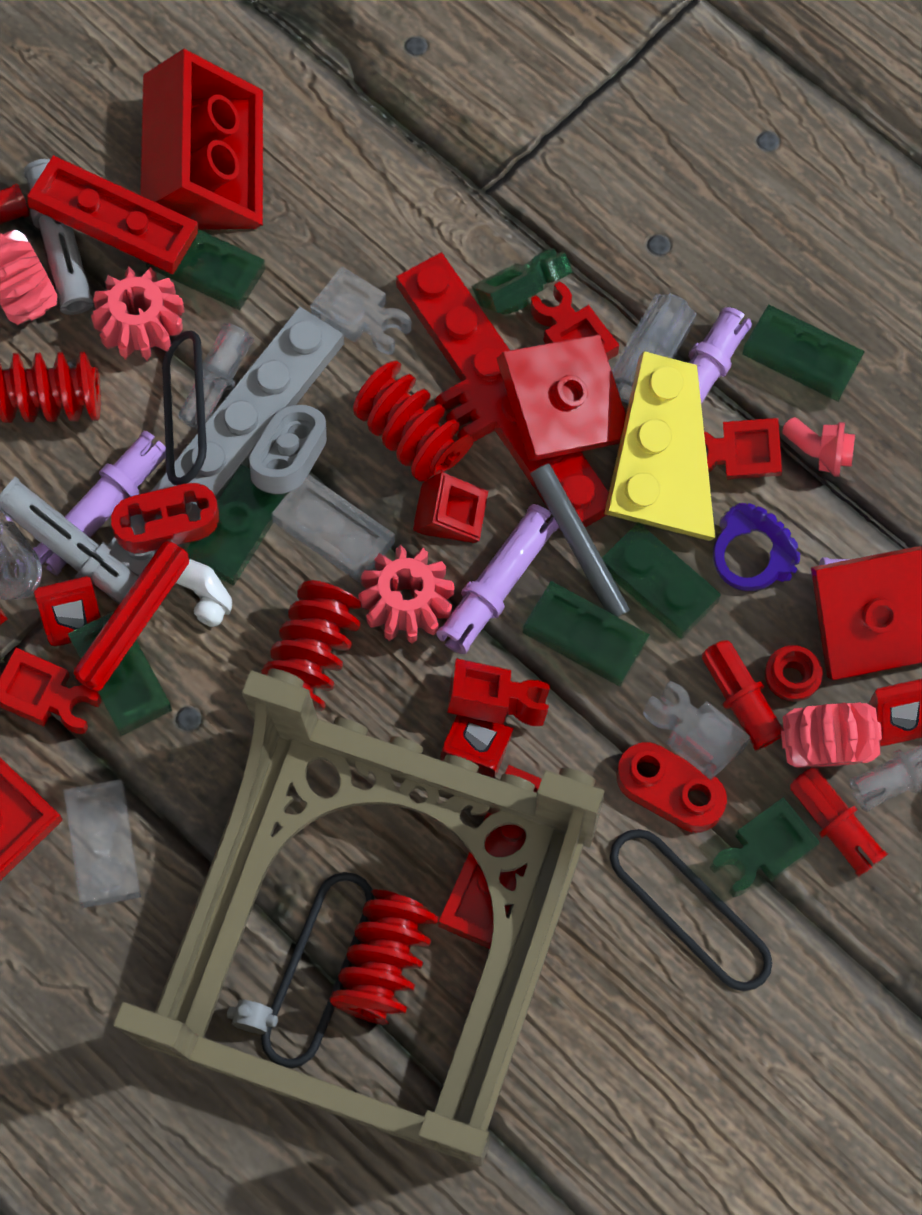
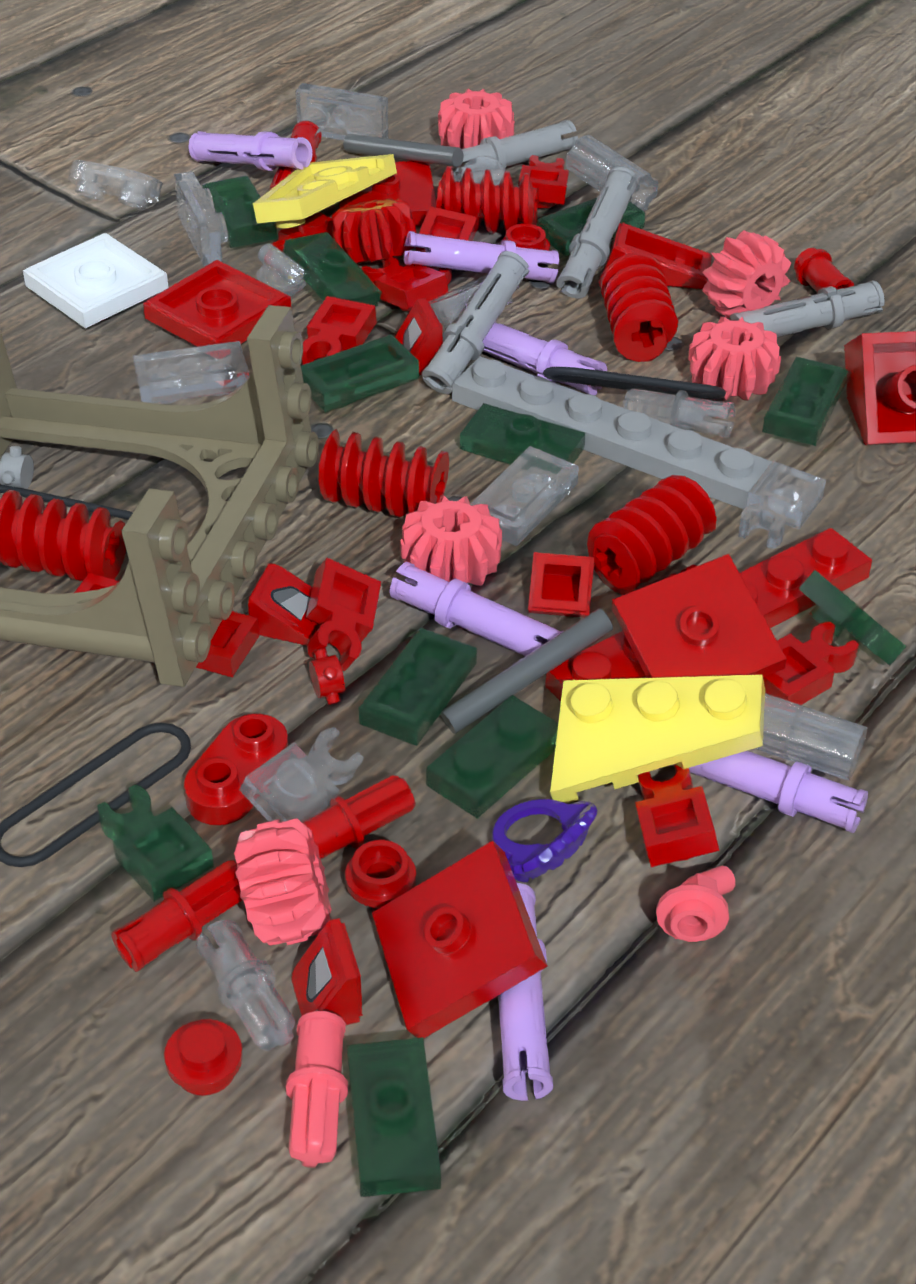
camera: 90 degrees right, 25 degrees down
(112, 214) = (825, 316): red plate -> none
(131, 616) = (407, 357): red axle -> none
(165, 517) = (510, 371): red beam -> none
(214, 597) = (447, 419): white arm -> none
(288, 449) = (601, 451): light grey plate -> none
(568, 711) = (327, 676): none -> red piece
(803, 352) = (828, 884): clear green plate -> none

